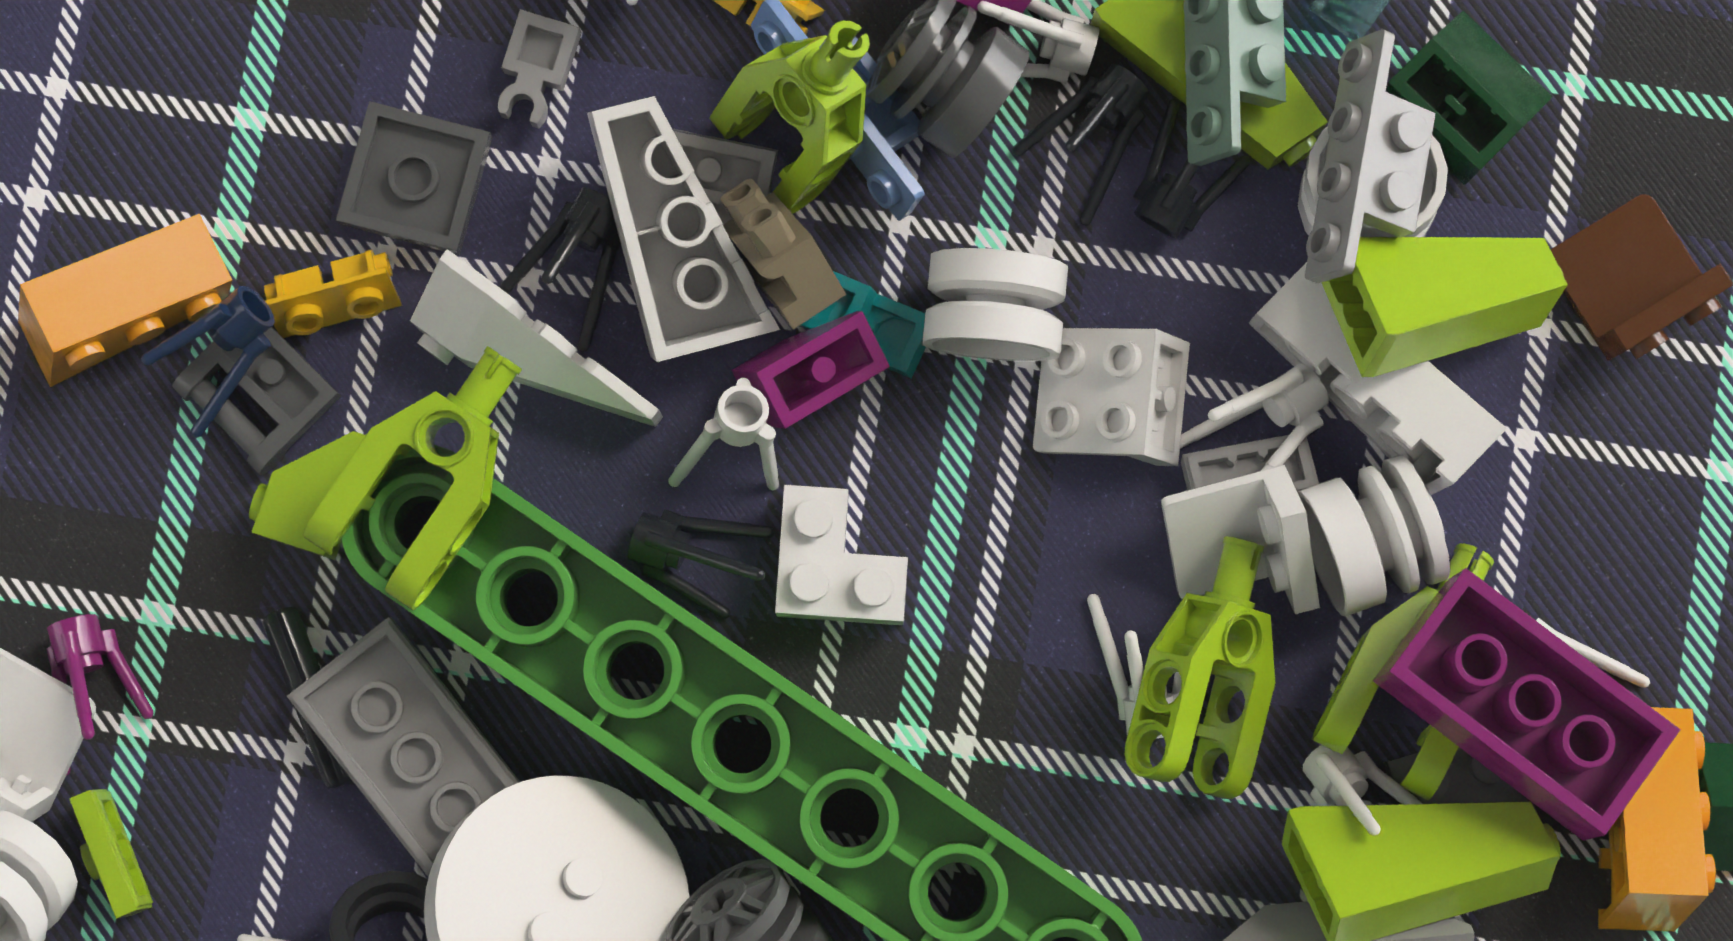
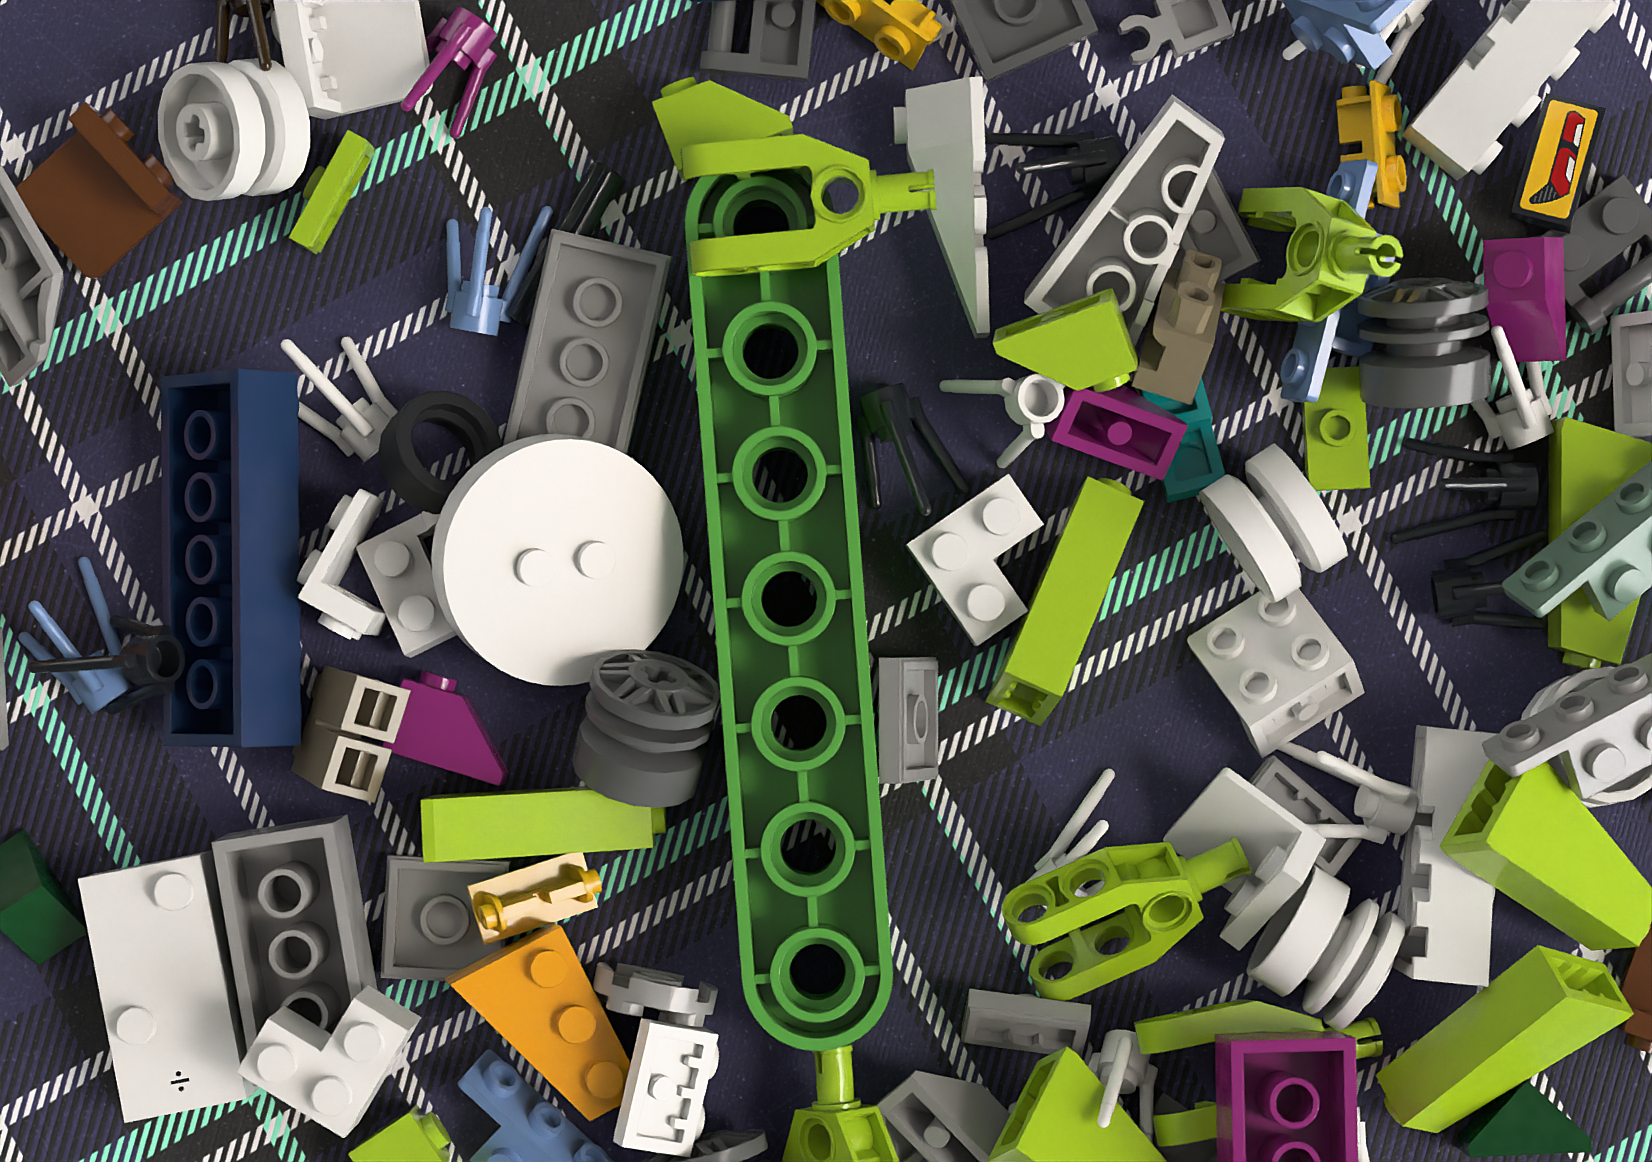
camera: 55 degrees right, 5 degrees up
(296, 809) = (476, 304): none -> medium blue plant
(721, 347) = (1074, 343): none -> lime slope
(918, 726) = (908, 719): none -> light grey tile
(925, 522) = (1065, 600): none -> lime slope
(964, 199) = (1336, 434): none -> lime plate
(1241, 829) = (1024, 1022): none -> light grey plate
(1557, 452) = (1502, 1037): none -> lime slope
(1637, 492) = (1521, 1124): none -> dark green slope

